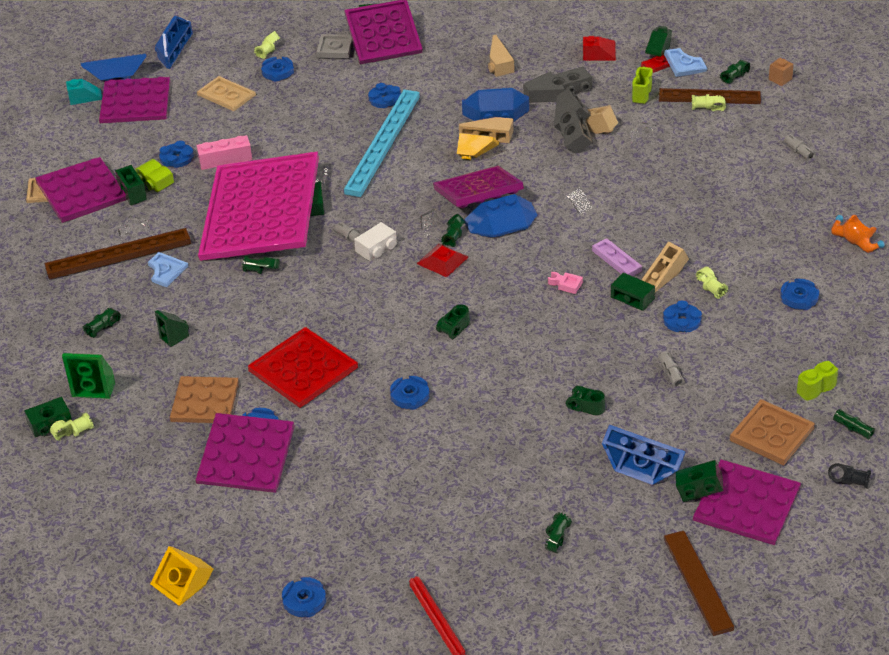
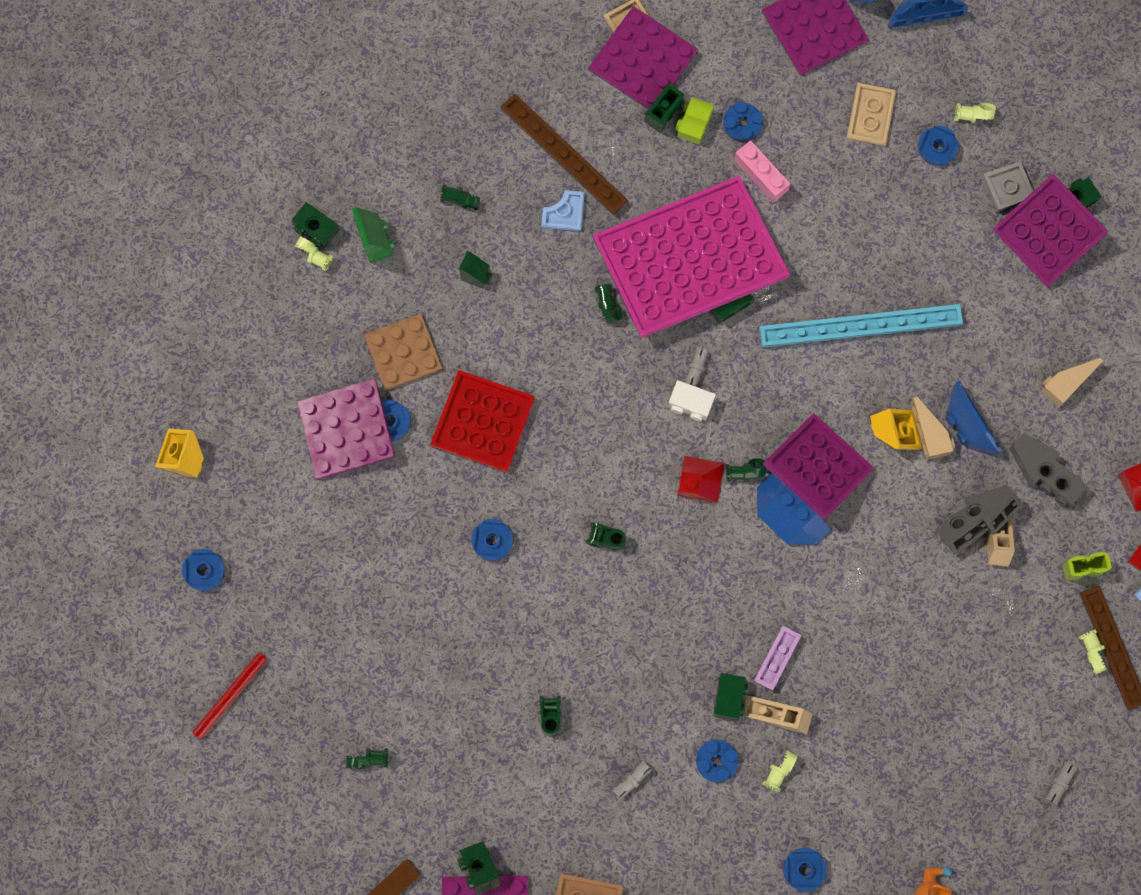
camera: 60 degrees right, 35 degrees up
(390, 94) = (952, 278): blue plate -> none
(567, 282) = (717, 624): bright pink plate -> none
(641, 456) = (494, 800): blue wedge -> none

